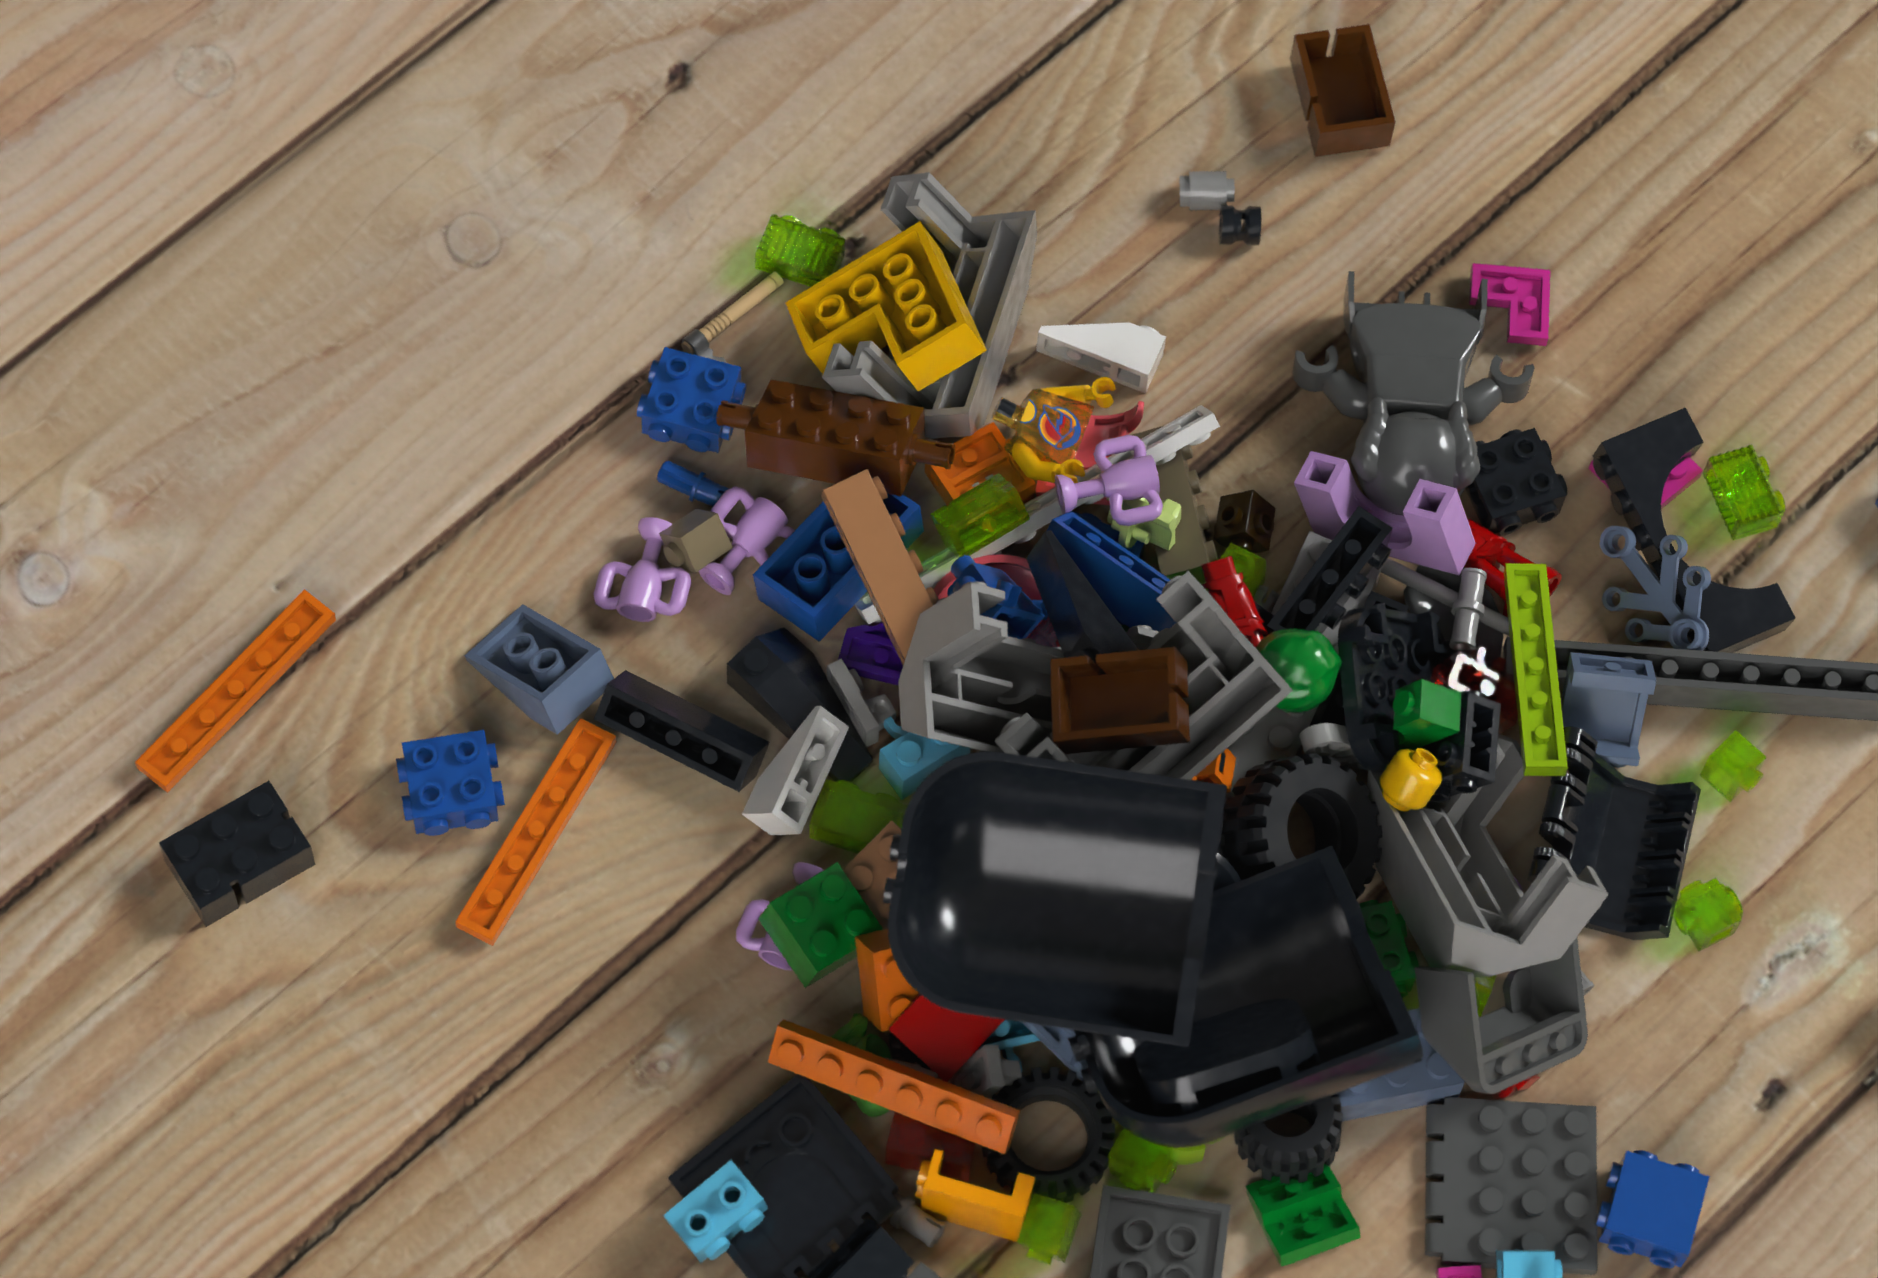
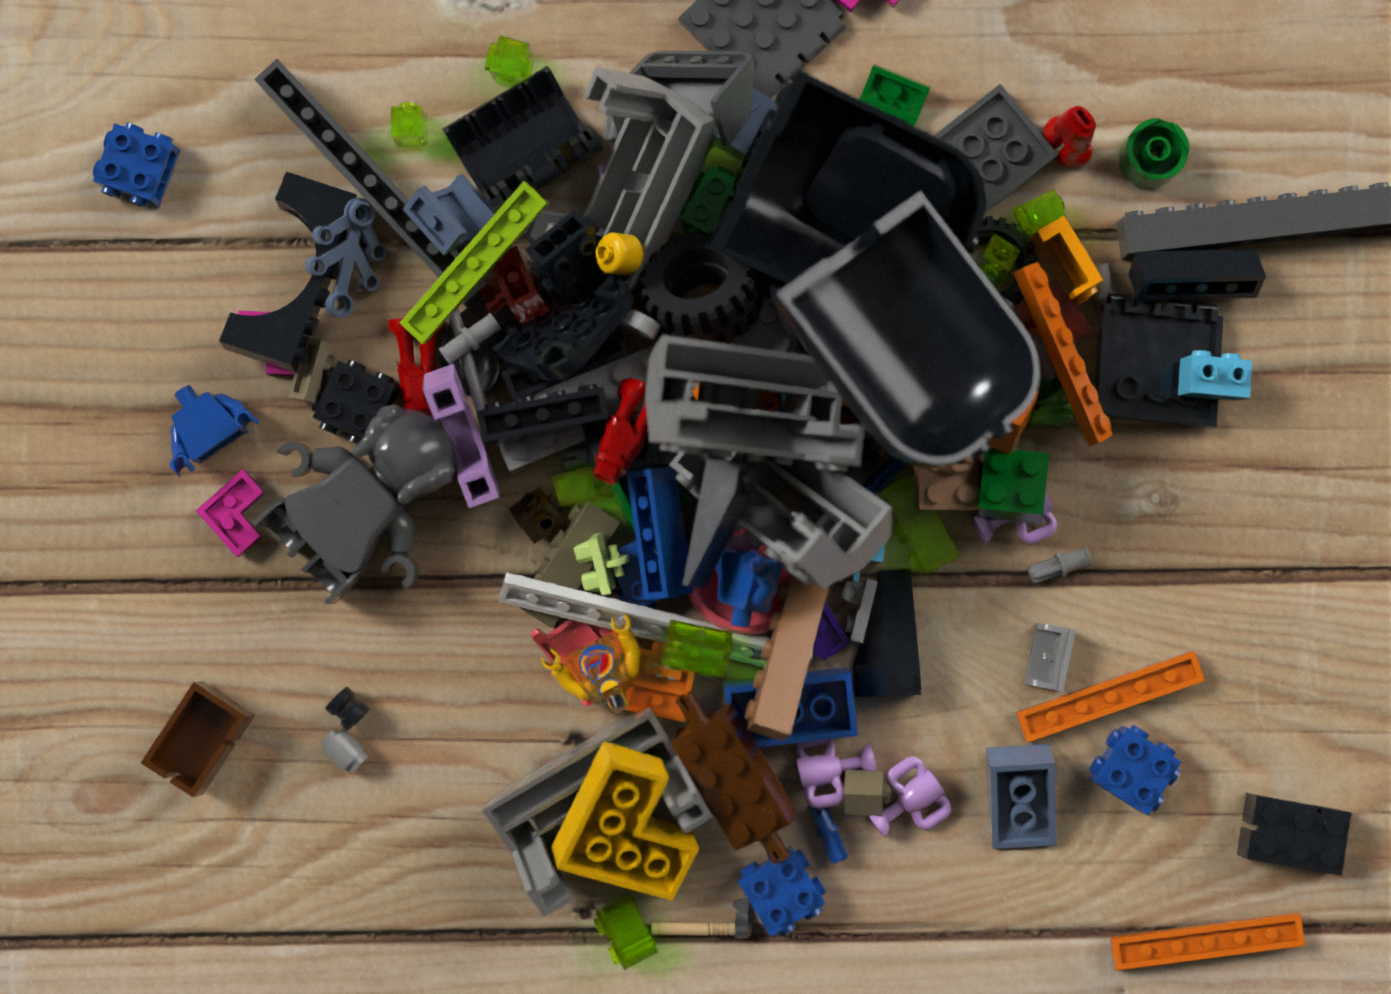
camera: 130 degrees left, 20 degrees up
(629, 817) = (1049, 657): none -> light grey hinge
(681, 730) = (979, 680): black brick -> none
(701, 910) = (1059, 565): none -> light grey axle
(796, 775) = (941, 592): white slope -> none
(1046, 1128) = (997, 259): none -> clear neon green brick
(1111, 350) = (501, 693): white slope -> none
(1118, 482) = (601, 589): lavender piece -> none
(1124, 709) = (763, 425): reddish brown piece -> none
(1305, 663) = (623, 368): green piece -> none
(1425, 713) = (576, 277): green arch -> none
(1576, 461) = (307, 379): none -> dark tan hinge
(1620, 342) = (205, 426): none -> blue torso
(1744, 492) = (230, 274): clear neon green brick -> none

